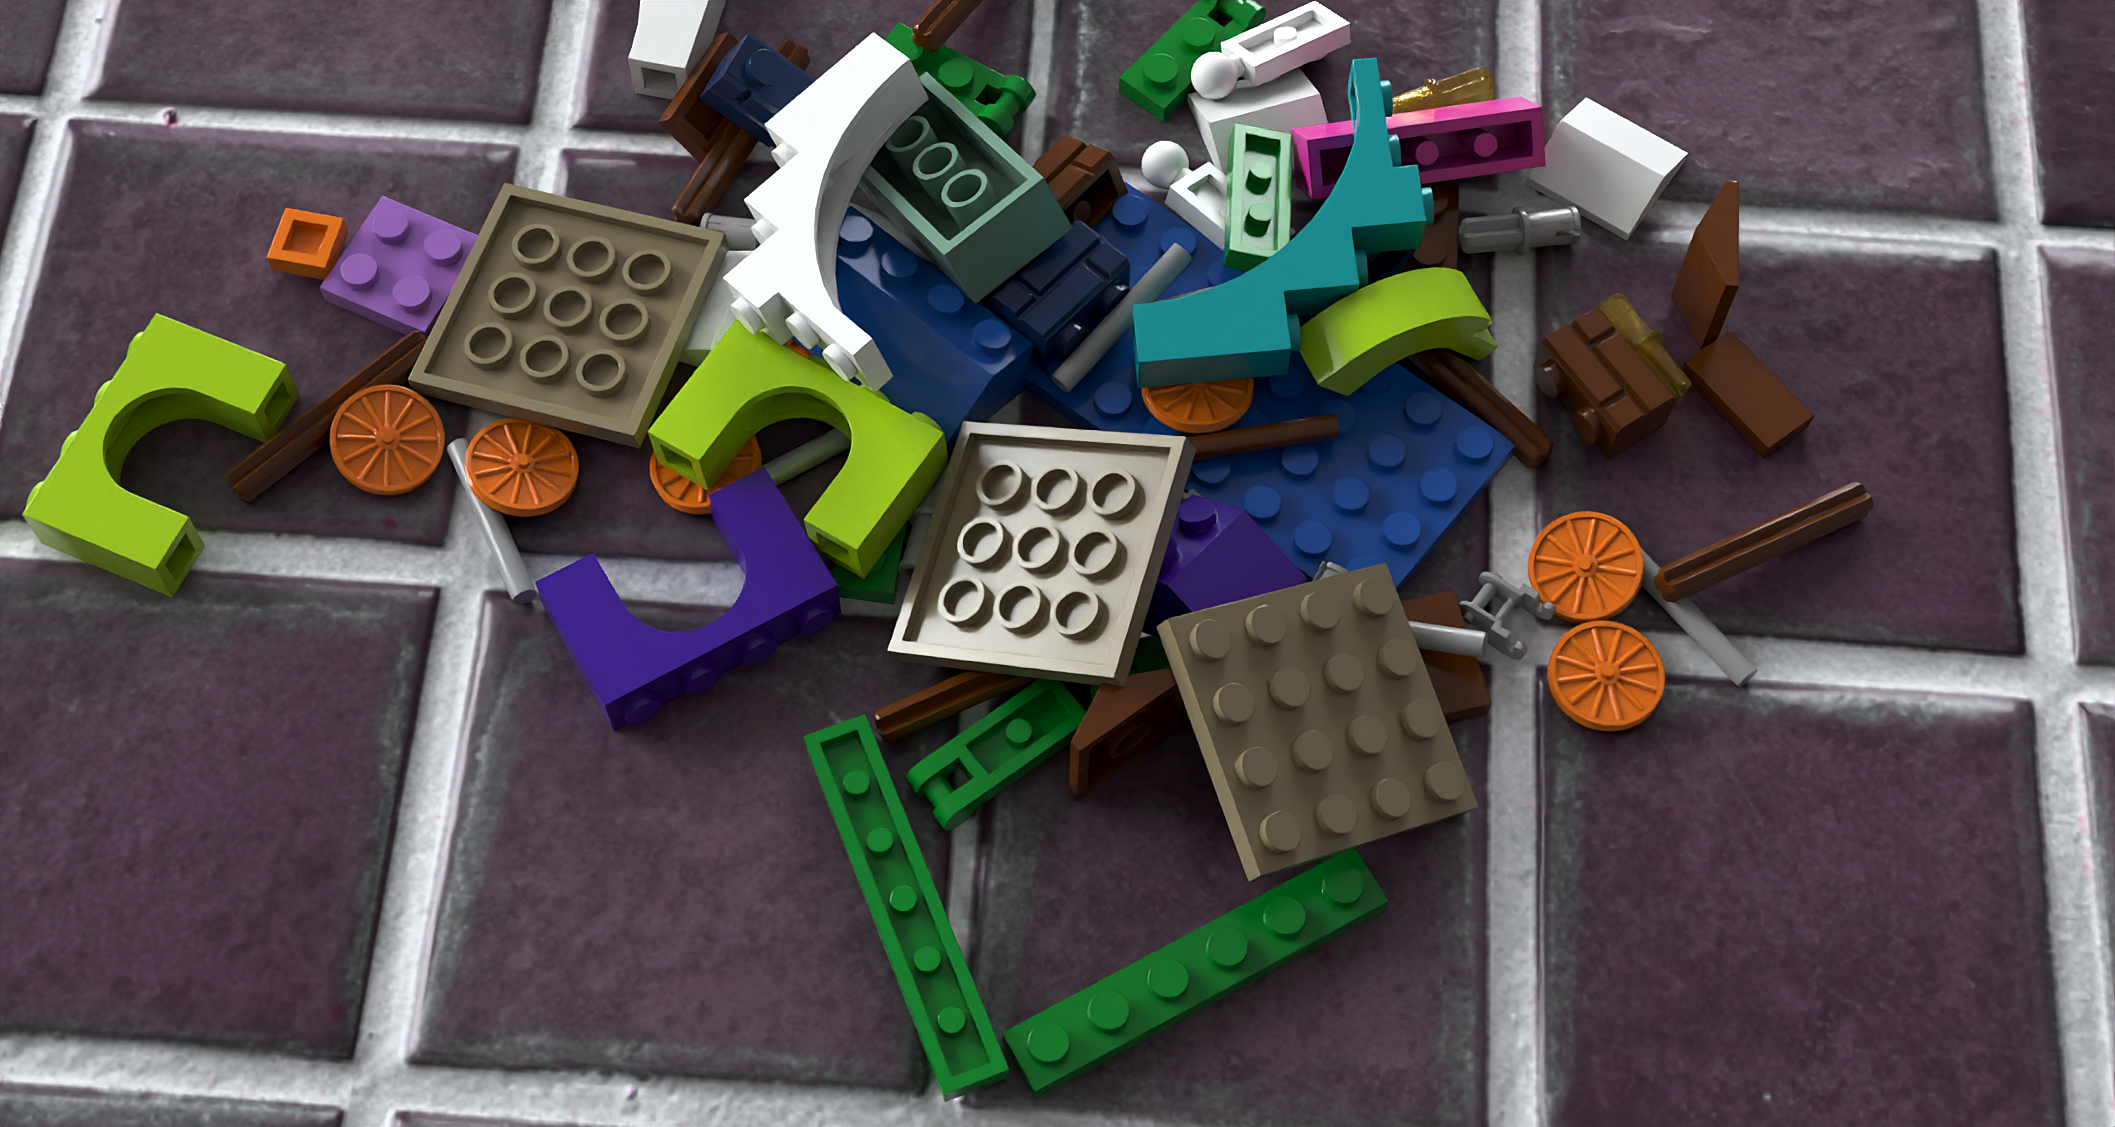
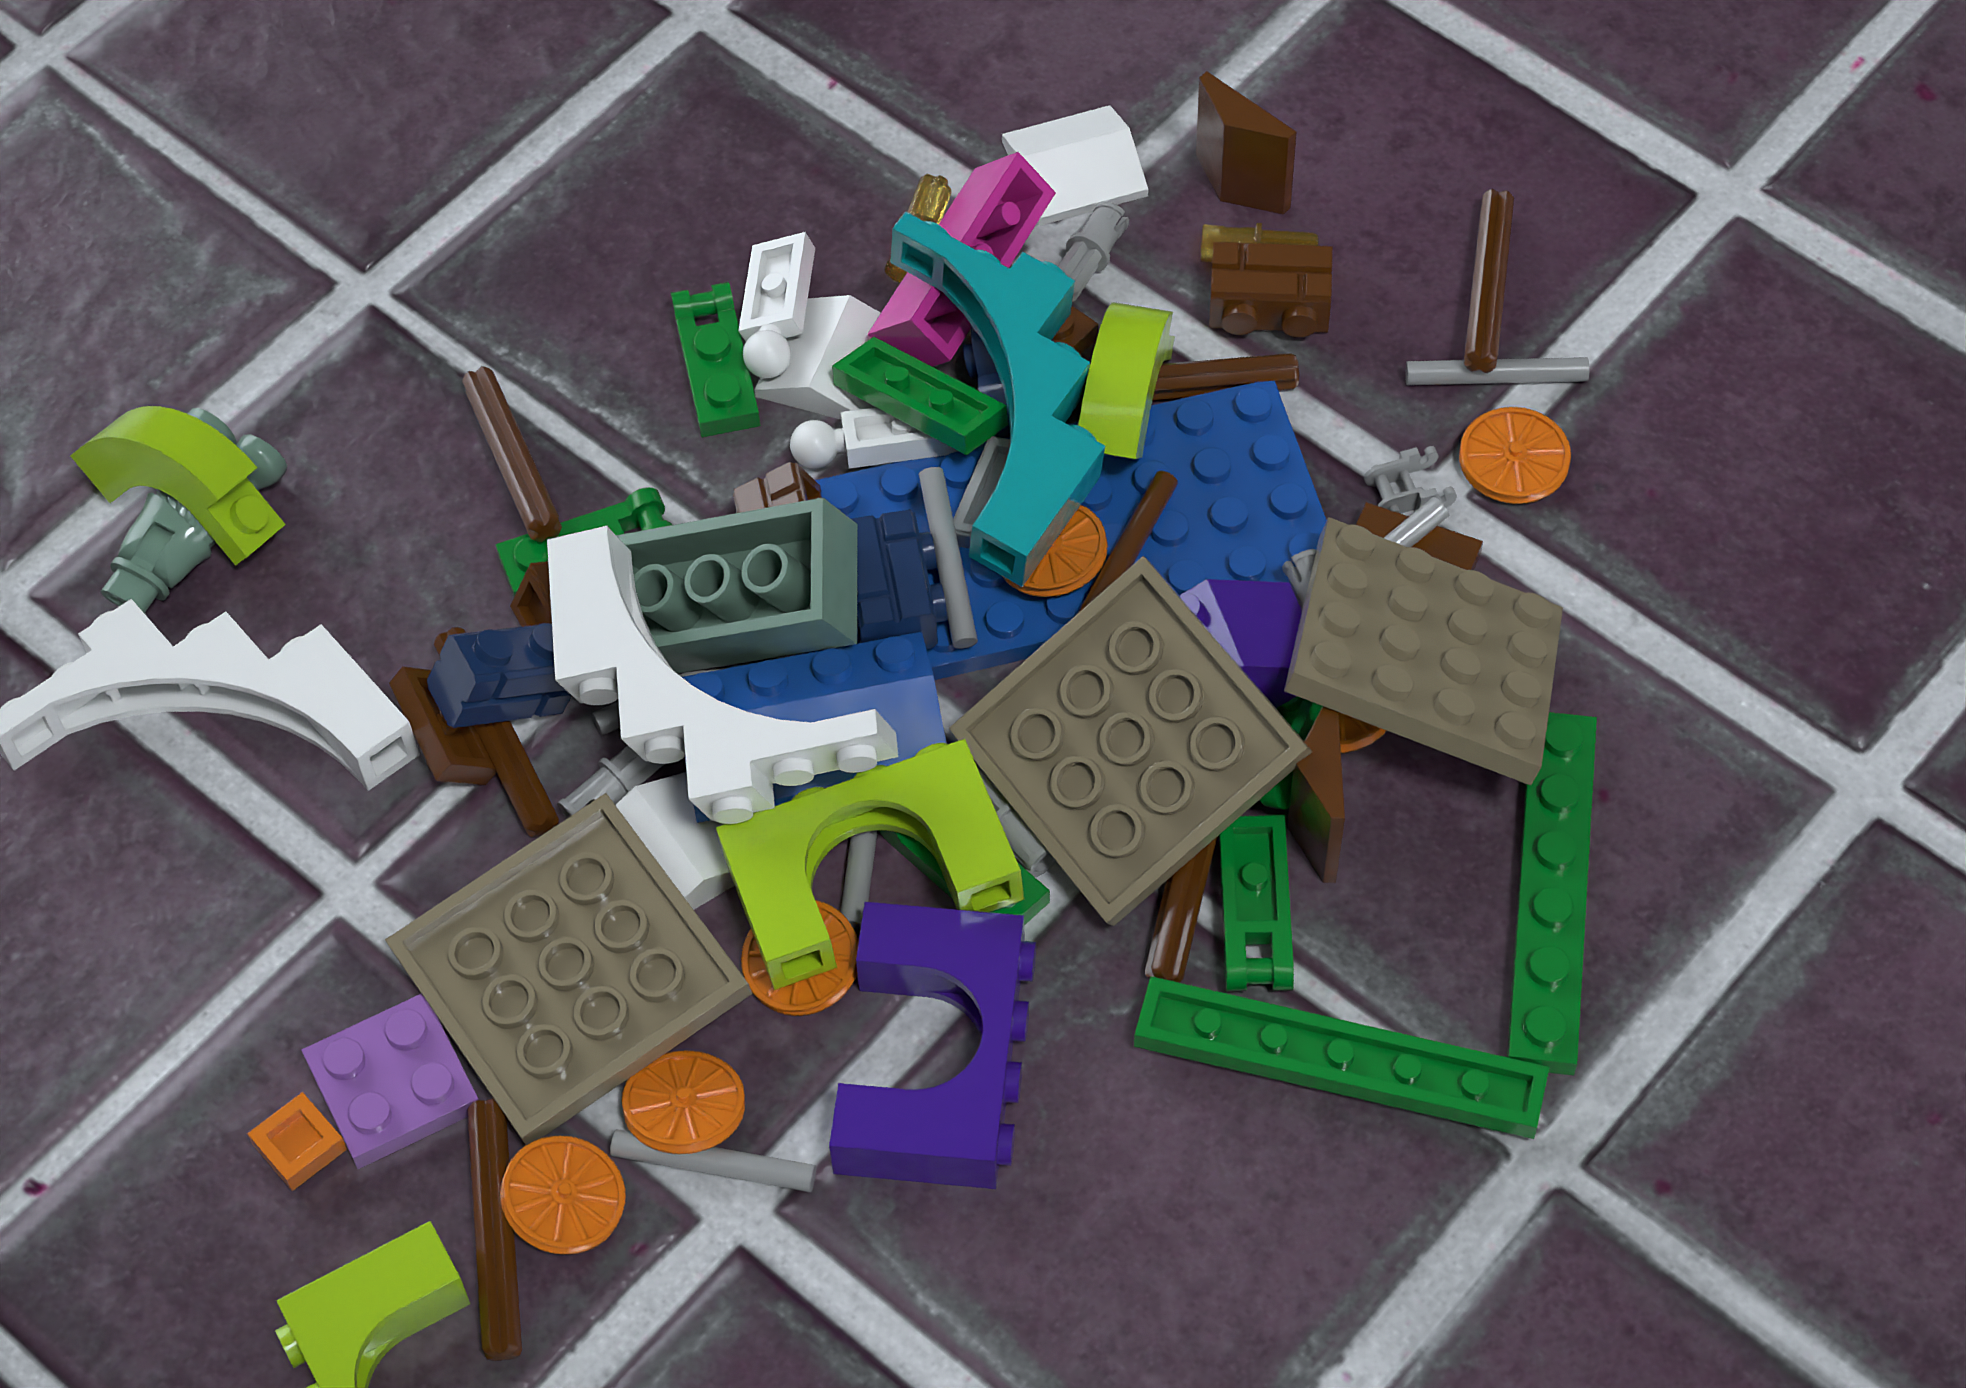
camera: 50 degrees left, 5 degrees down
(1586, 566) = (1415, 404): orange wheel -> none
(1747, 394) = (1352, 208): reddish brown tile -> none

